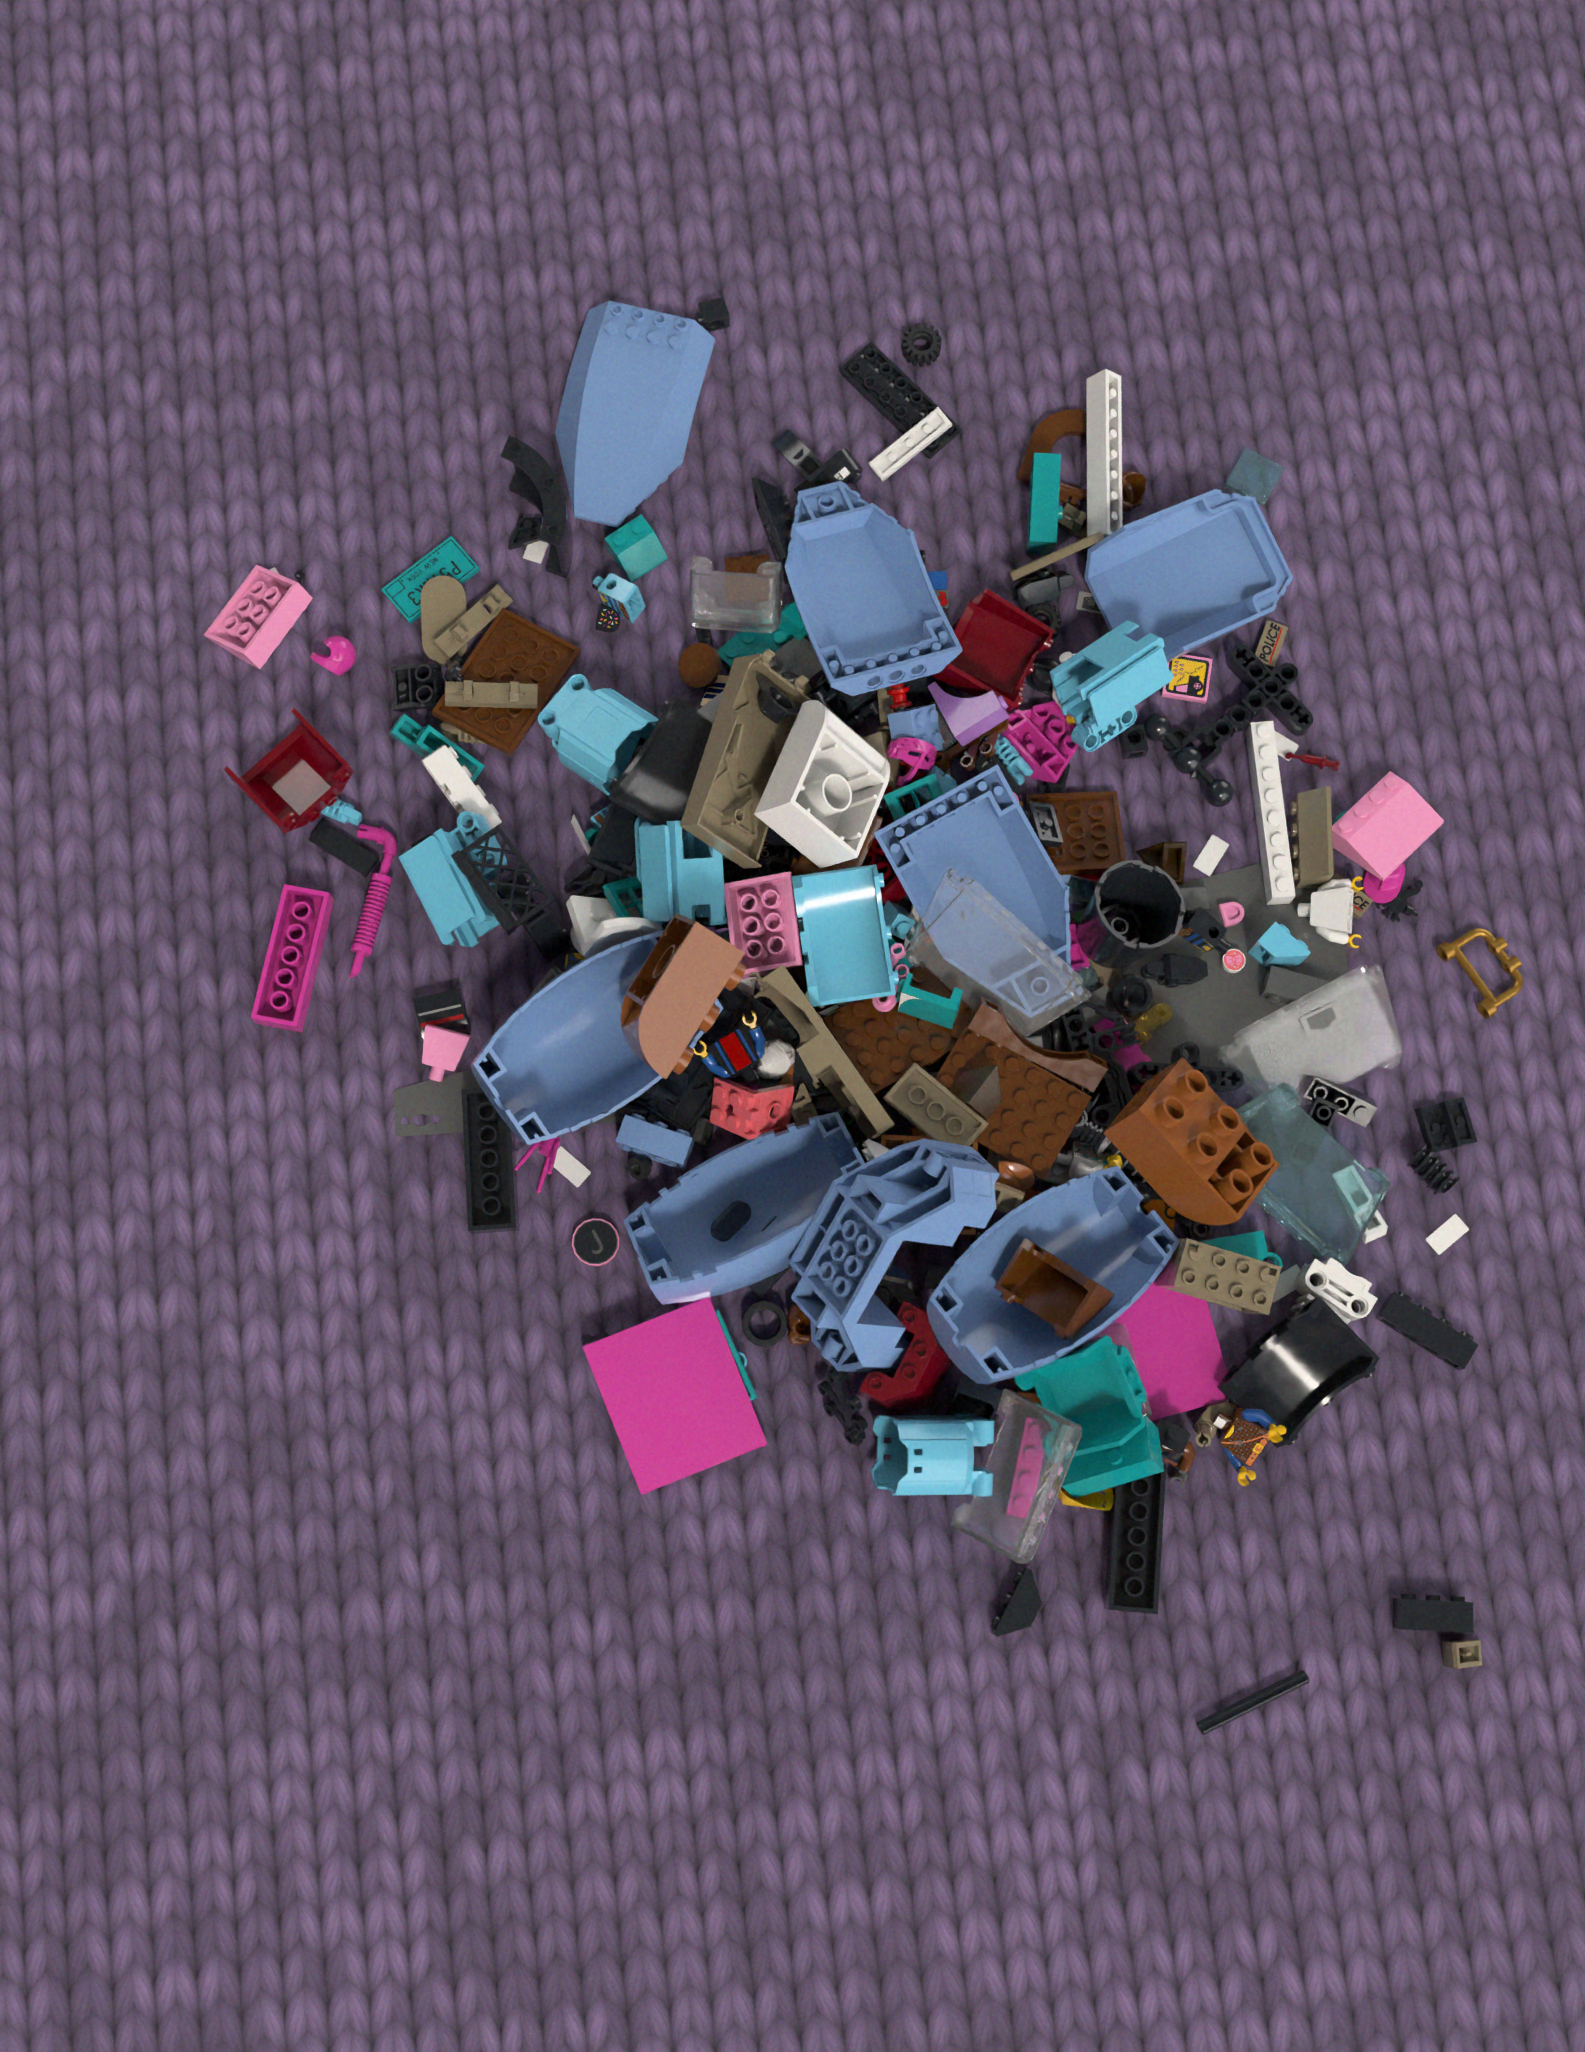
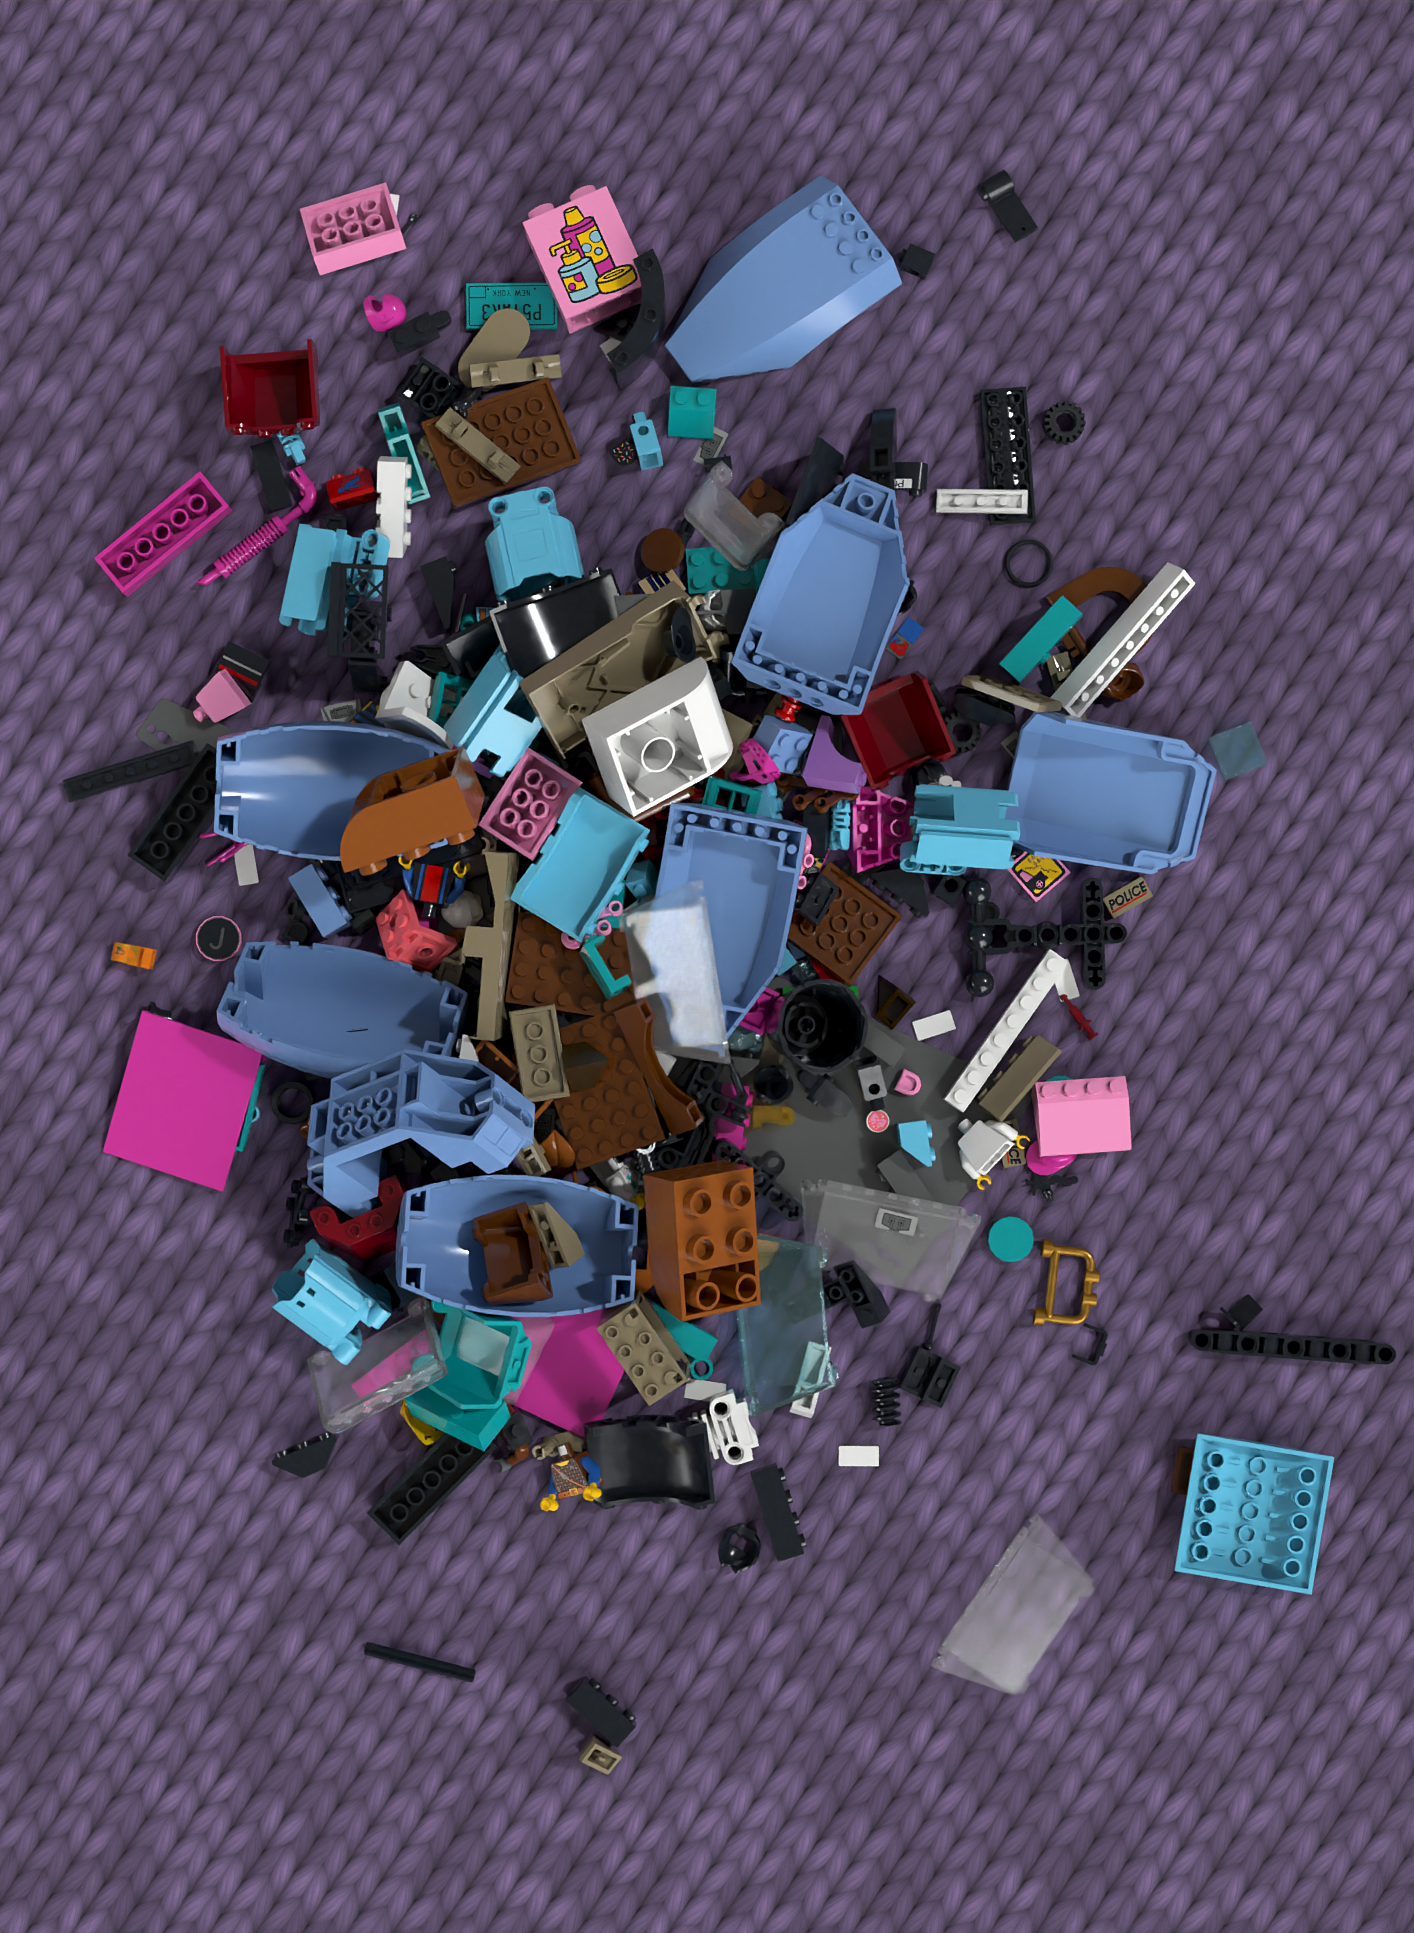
camera: 45 degrees right, 10 degrees up
(373, 651) = (418, 331): none -> black hinge
(415, 1167) = (130, 771): none -> black tile
(418, 807) = (352, 489): none -> red slope
(461, 495) = (585, 257): none -> bright pink brick
(537, 1311) = (134, 955): none -> orange leg
(547, 825) = (441, 583): none -> black slope
(653, 1185) = (296, 932): none -> black tile
(672, 568) = (711, 448): none -> sticker
(684, 571) = (726, 459): none -> black pin
(730, 1221) = (329, 1006): black tile -> none
(735, 226) = (1006, 204): none -> black door
(980, 483) = (1028, 584): none -> black tyre
(1070, 1246) = (557, 1237): none -> dark tan slope
(1100, 769) = (904, 888): none -> black slope
(1412, 968) = (1010, 1239): none -> teal tile
(1423, 1101) = (929, 1345): none -> black hinge
(1425, 1396) = (735, 1557): none -> black helmet
(1553, 996) = (1100, 1349): none -> black piece

